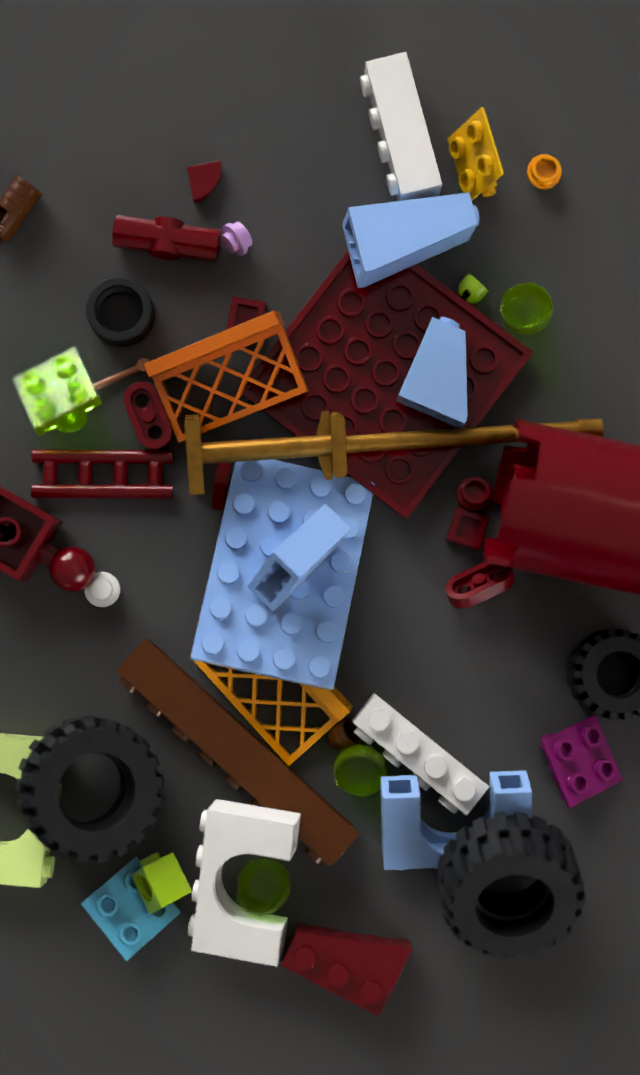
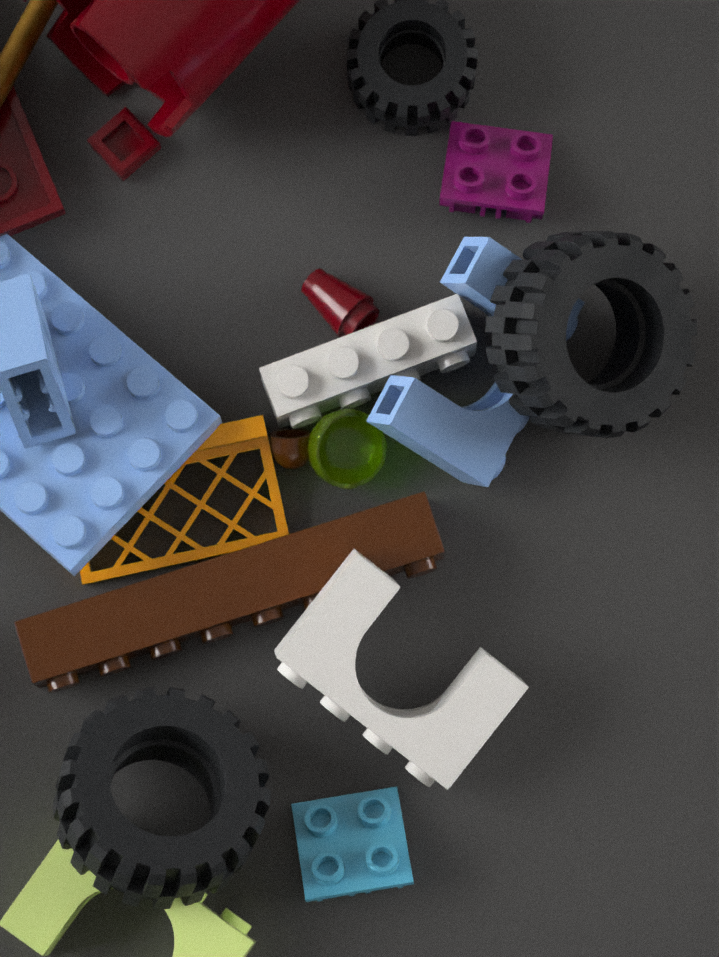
camera: 55 degrees left, 5 degrees down
(160, 881) = (339, 782): lime brick -> none
(263, 886) = (421, 653): clear neon green hair -> none
(347, 963) = (581, 602): dark red wedge -> none
(444, 715) = (339, 303): none -> dark red cone
(474, 494) = (84, 109): dark red plate -> none
(478, 584) = (200, 165): dark red plate -> none

